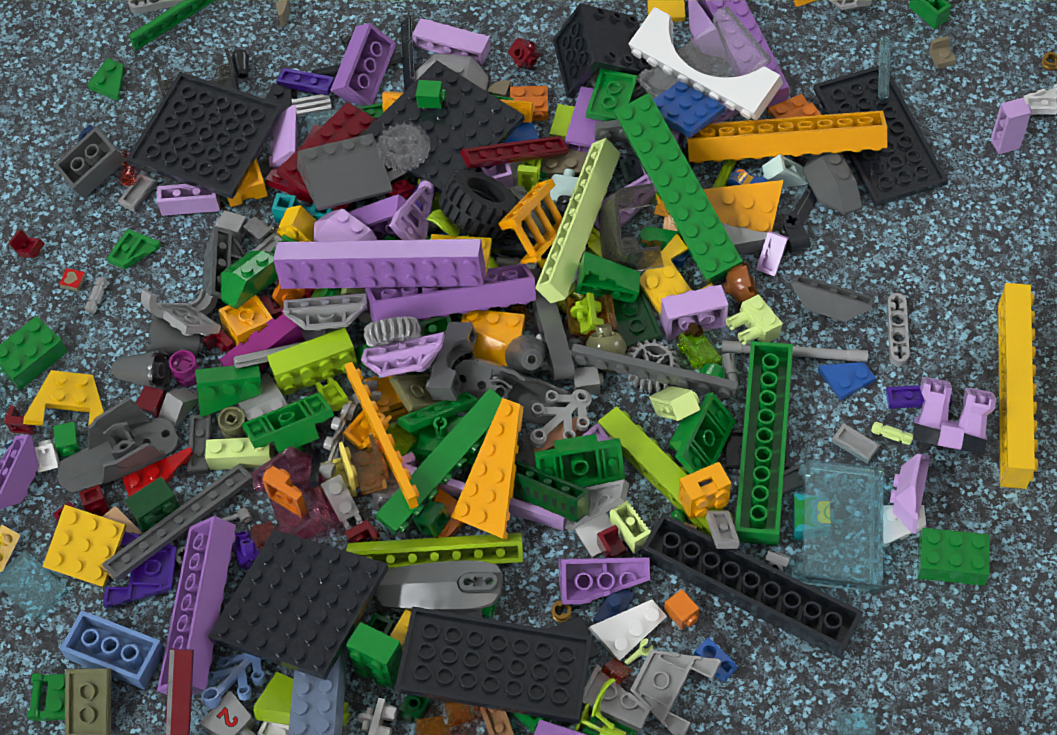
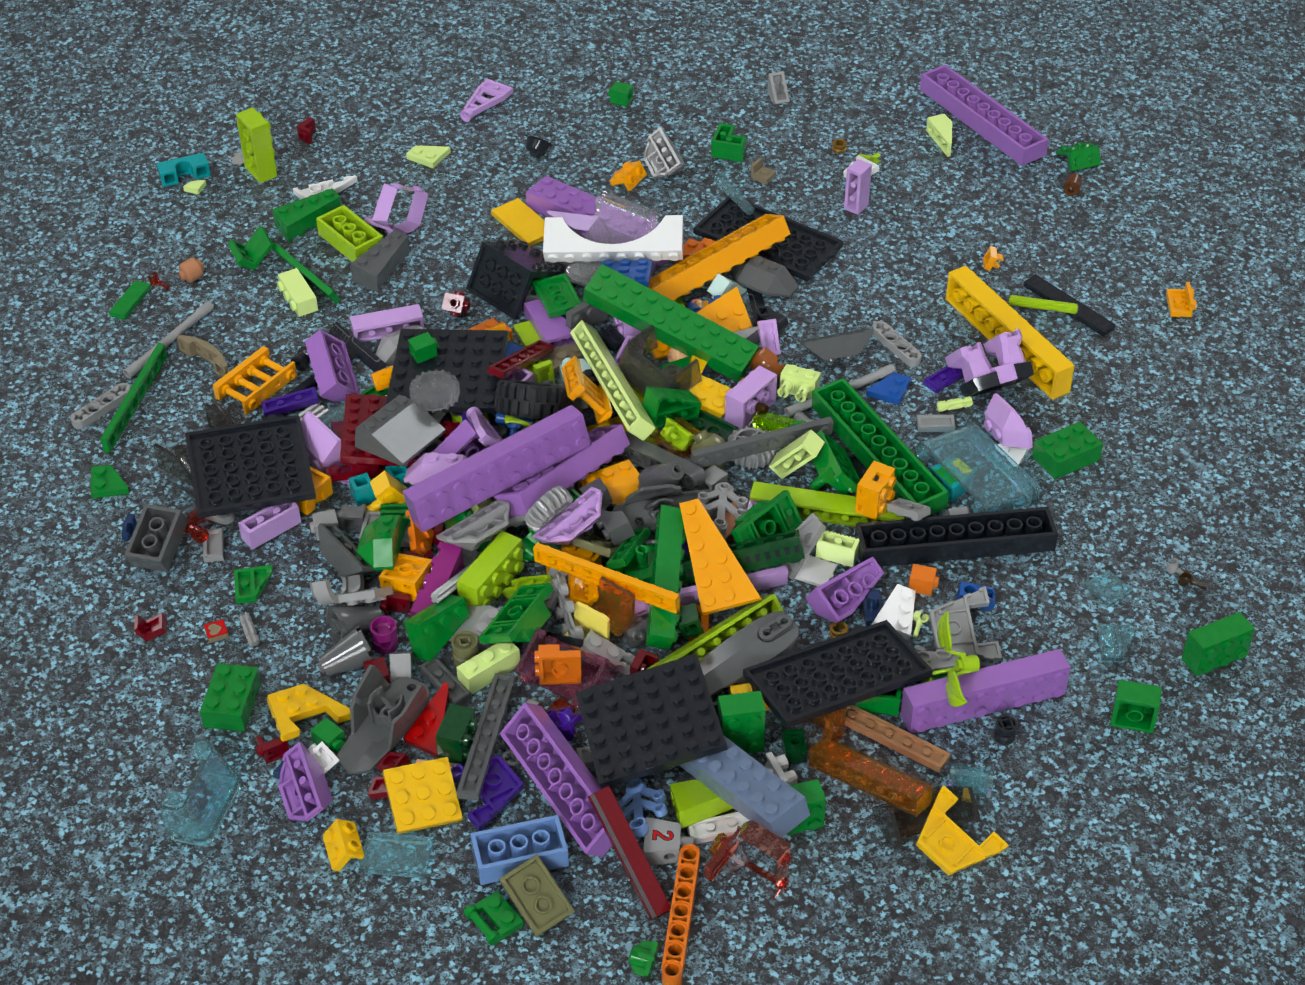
camera: 40 degrees left, 15 degrees down
(292, 28) = (251, 367): none -> light orange fence
(610, 543) = (832, 568): dark red panel -> none
(616, 670) = (916, 642): clear red tile -> none

